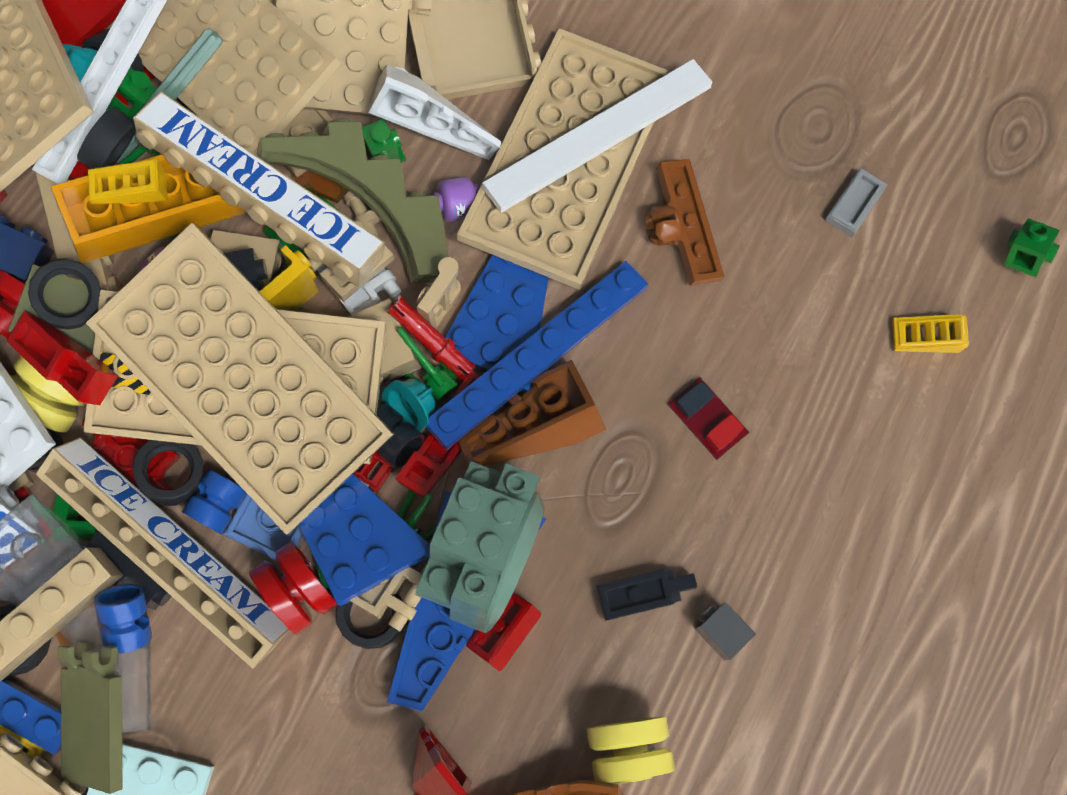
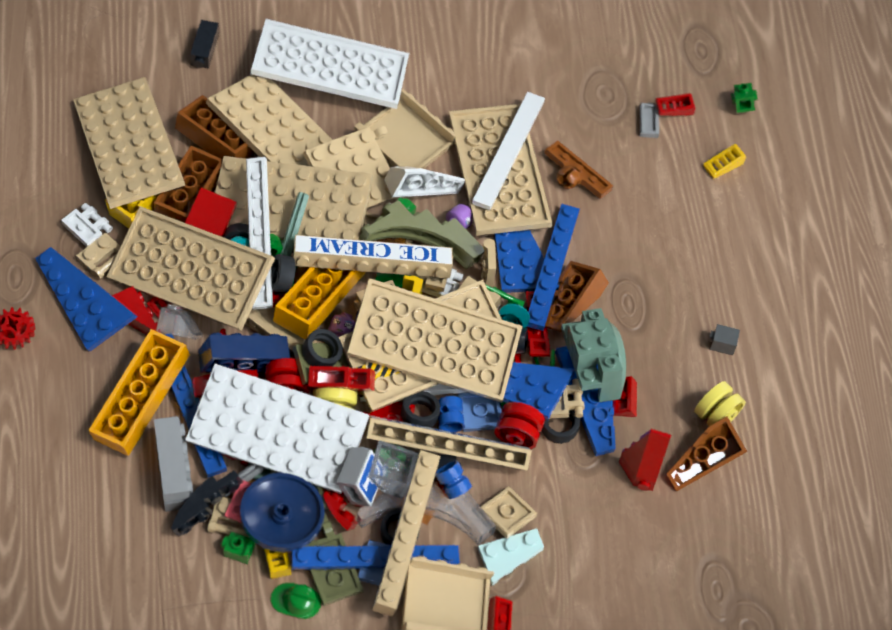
camera: 35 degrees left, 15 degrees down
(91, 717) = (471, 530): olive tile -> none
(128, 194) = (317, 273): yellow slope -> none
(186, 713) = (508, 512): none -> tan plate
(440, 347) = (507, 287): red pin -> none
(643, 593) = (676, 345): black hinge -> none
(708, 418) = (650, 254): piece -> none
(925, 194) = (681, 99): none -> red slope

